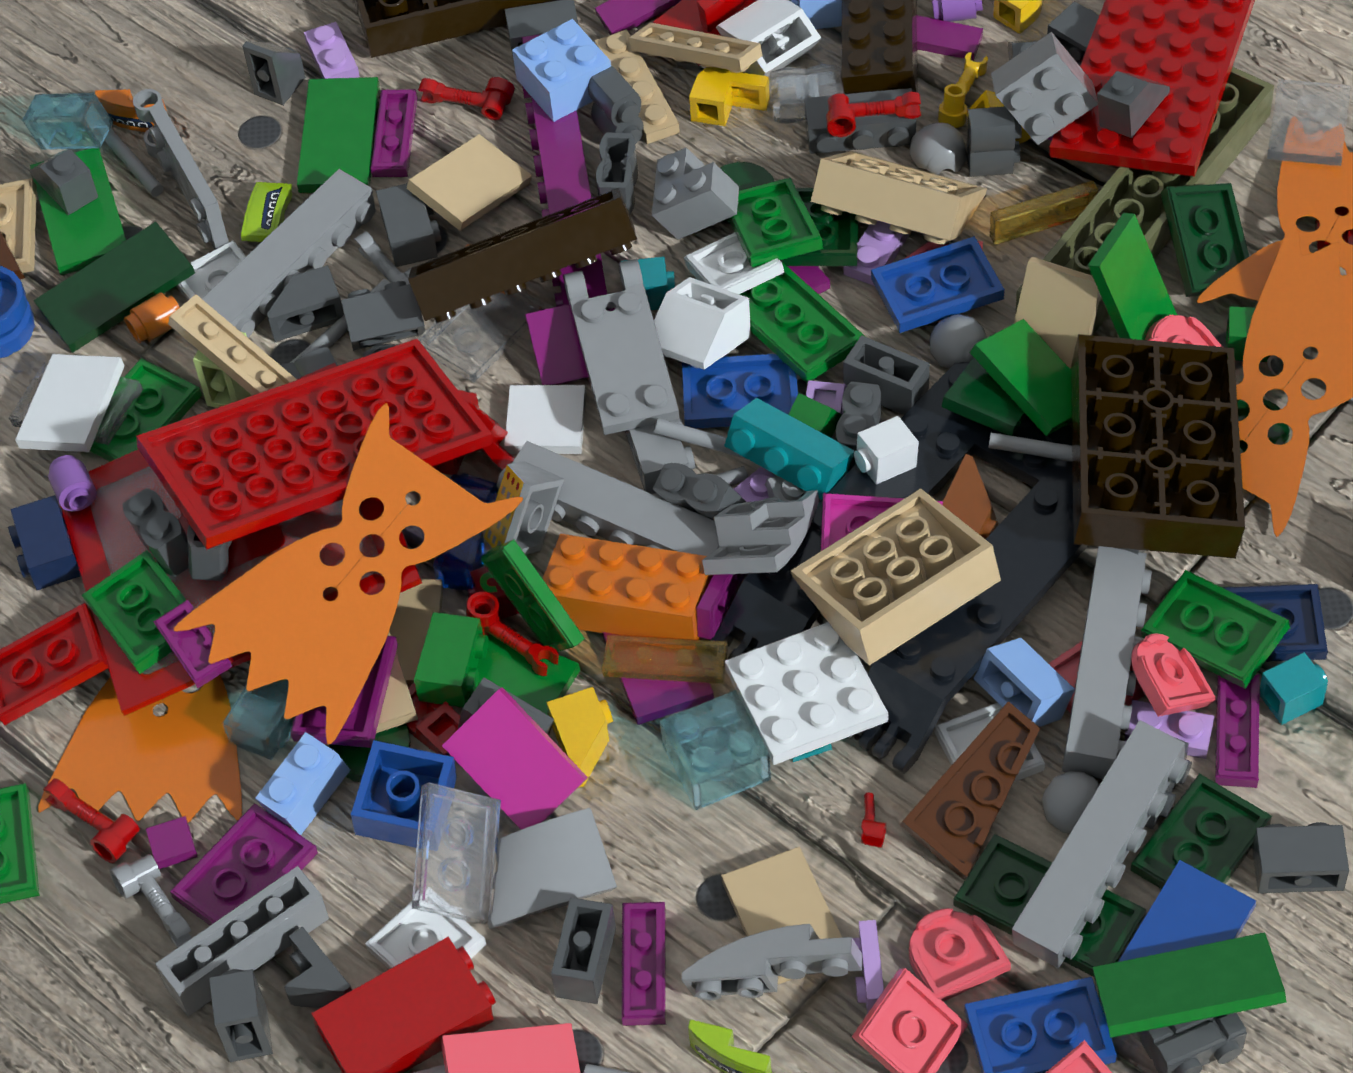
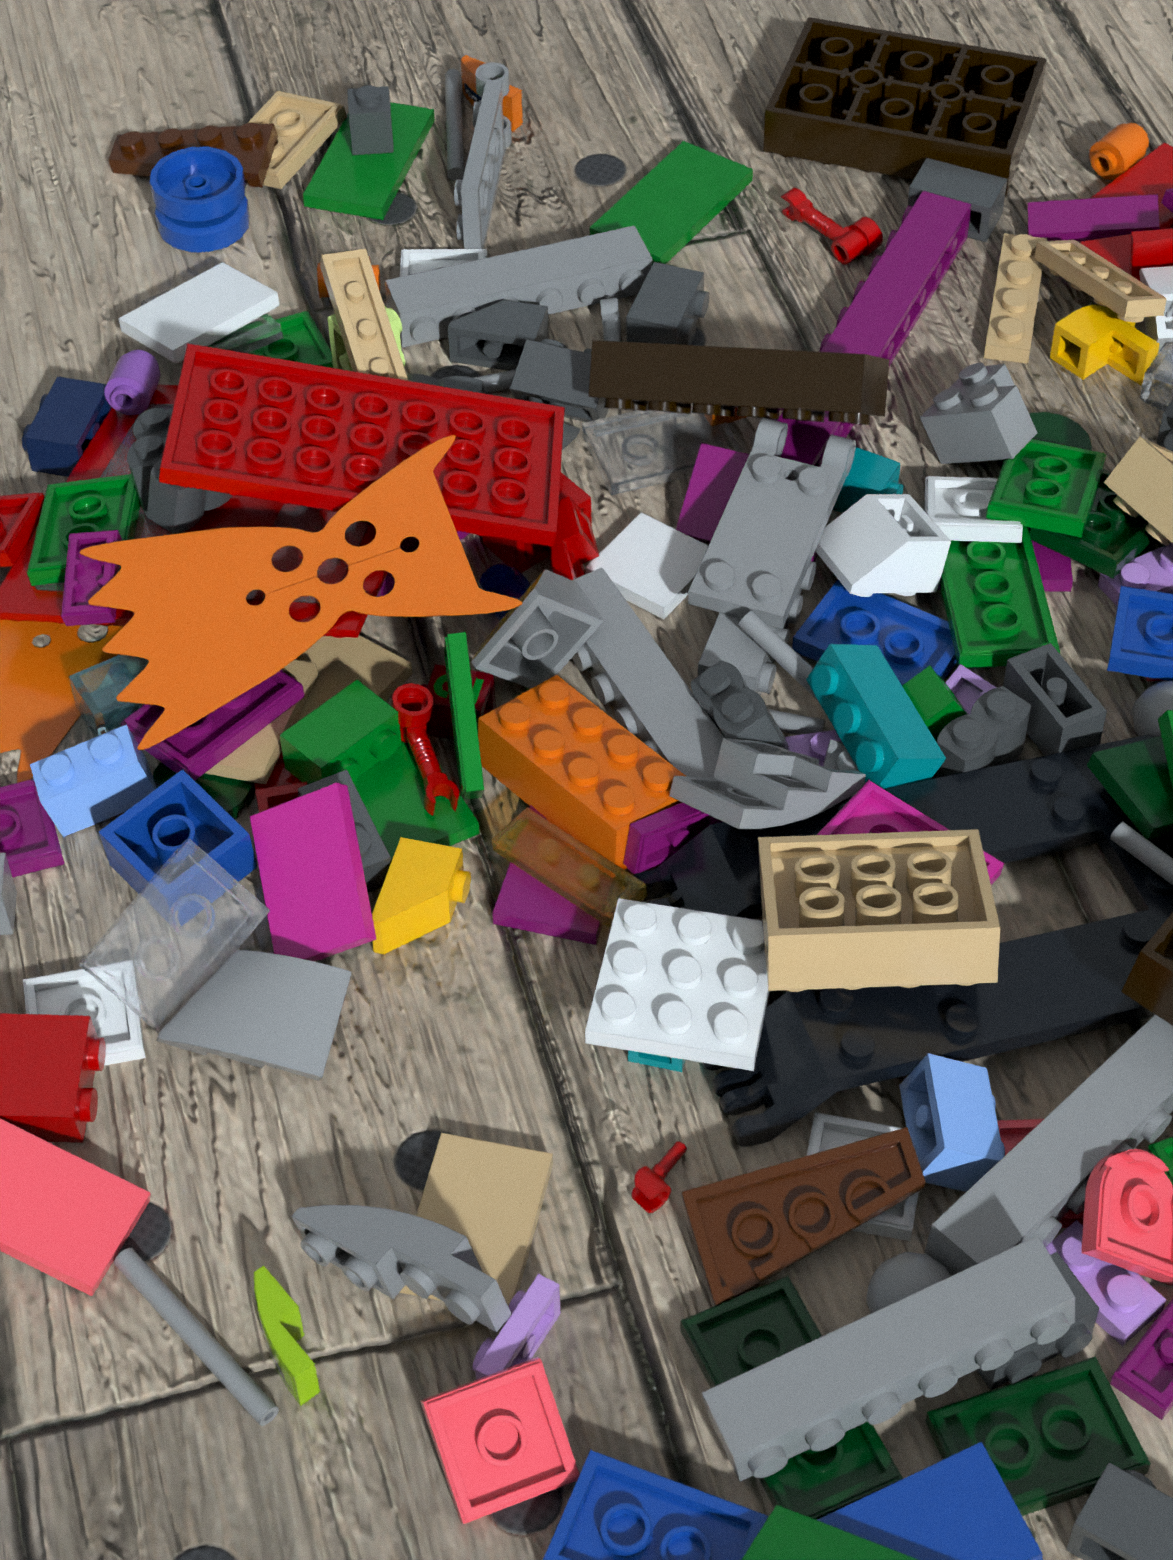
camera: 30 degrees right, 5 degrees down
(67, 121) = (419, 70): clear light blue brick -> none
(113, 285) = (297, 237): dark green tile -> none
(265, 210) = (540, 230): lime slope -> none
(273, 70) = (652, 113): dark grey slope -> none
(331, 52) = (728, 128): lavender plate -> none
(394, 133) = (728, 228): magenta tile -> none
(457, 563) = (426, 643): clear blue brick -> none
(469, 182) = (757, 300): tan tile -> none
(559, 68) = (933, 232): light blue brick -> none
(583, 950) = (220, 1120): dark grey brick -> none
(615, 104) = (966, 299): dark grey brick -> none
(618, 166) = (920, 362): dark grey brick -> none
(643, 963) = (283, 1179): magenta tile -> none
(715, 750) = (539, 993): clear light blue brick -> none
(886, 450) = (982, 776): white brick -> none
(955, 953) = (633, 1386): coral tile -> none
(969, 499) = (1040, 888): dark orange slope -> none

